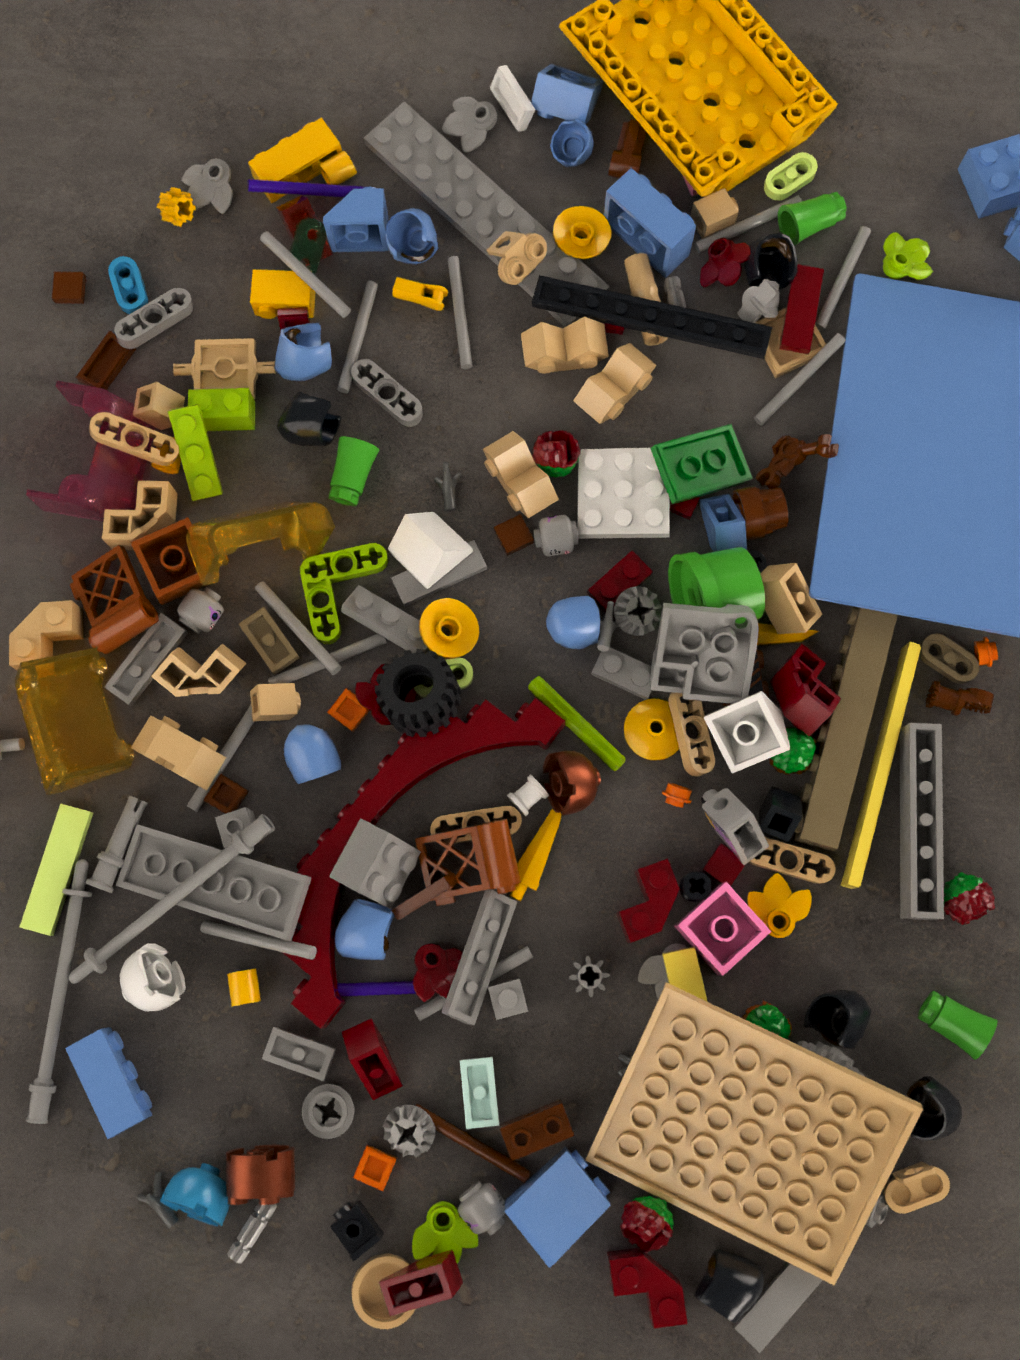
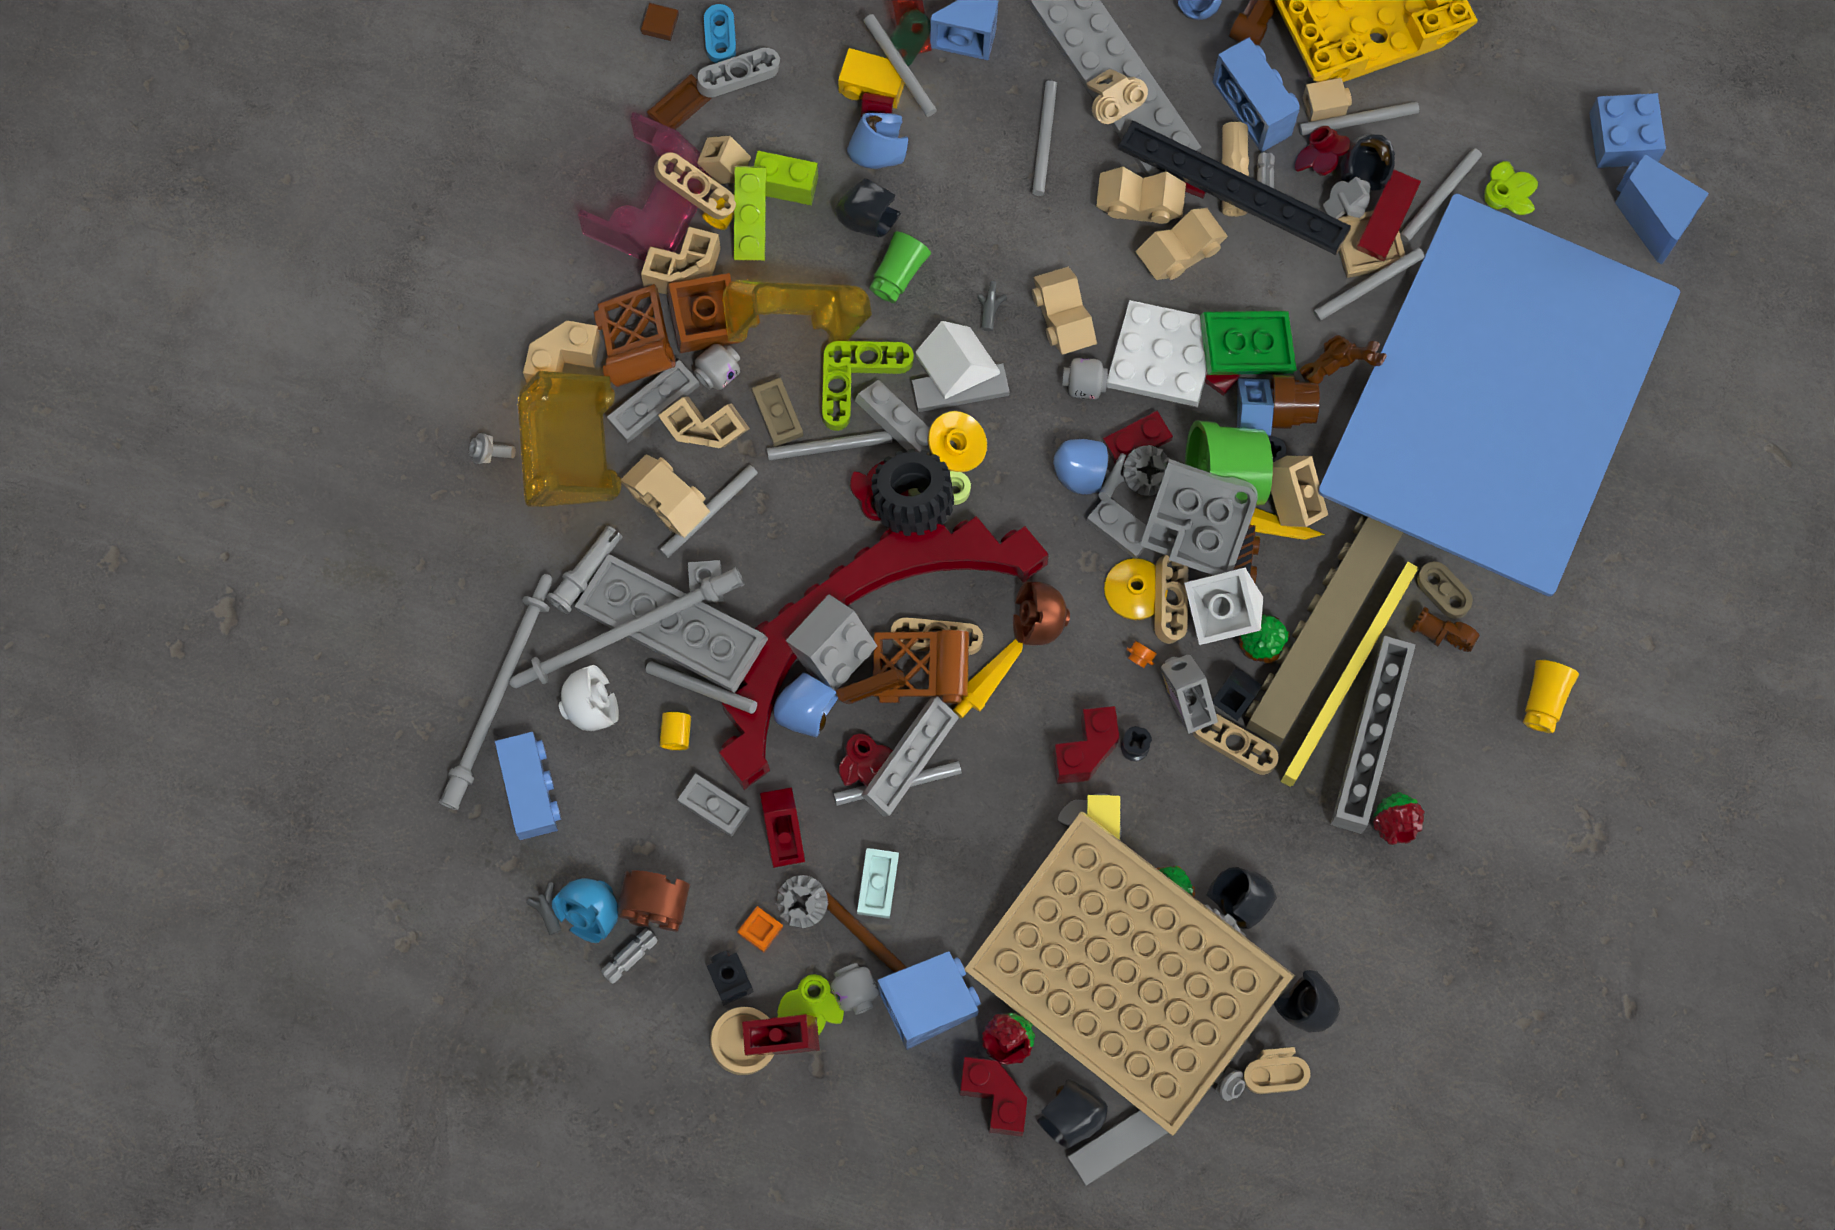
camera: 10 degrees right, 5 degrees down
(56, 869) = (519, 579): yellowish green tile -> none
(225, 365) = (798, 134): tan plate -> none
(226, 795) = (699, 547): reddish brown tile -> none
(274, 702) = (769, 470): tan brick -> none
(298, 628) = (808, 406): light grey bar -> none
(310, 753) = (793, 526): medium blue piece -> none
(313, 1116) = (726, 851): light grey gear -> none
(348, 710) = (838, 498): orange tile -> none
(357, 336) = (936, 138): light grey bar -> none
(375, 988) = (803, 766): dark purple bar -> none
(407, 399) = (933, 187): light grey beam -> none
(411, 236) = (1014, 52): medium blue piece -> none
(415, 292) = (1005, 107): yellow bar -> none
(508, 999) = (927, 802): light grey brick -> none
(513, 535) = (1043, 368): reddish brown tile -> none
(528, 795) = (994, 619): white bush -> none
(536, 1130) = (924, 928): reddish brown brick -> none
(556, 453) = (1105, 298): dark red piece -> none
(577, 723) = (1061, 564): lime axle -> none
(582, 222) = (1192, 78): yellow dish -> none
(596, 982) = (1003, 798): light grey gear -> none
(722, 929) = (1151, 786): bright pink brick -> none
(723, 865) = (1169, 733): dark red tile -> none
(780, 901) = (1216, 780): yellow plate -> none
(788, 177) = (1412, 82): yellowish green plate -> none
(801, 694) = (1286, 583): dark red brick -> none
(811, 216) = (1423, 126): bright green plant -> none
(958, 1023) = (1357, 931): bright green plant -> none
(985, 652) = (1483, 592): orange plate -> none

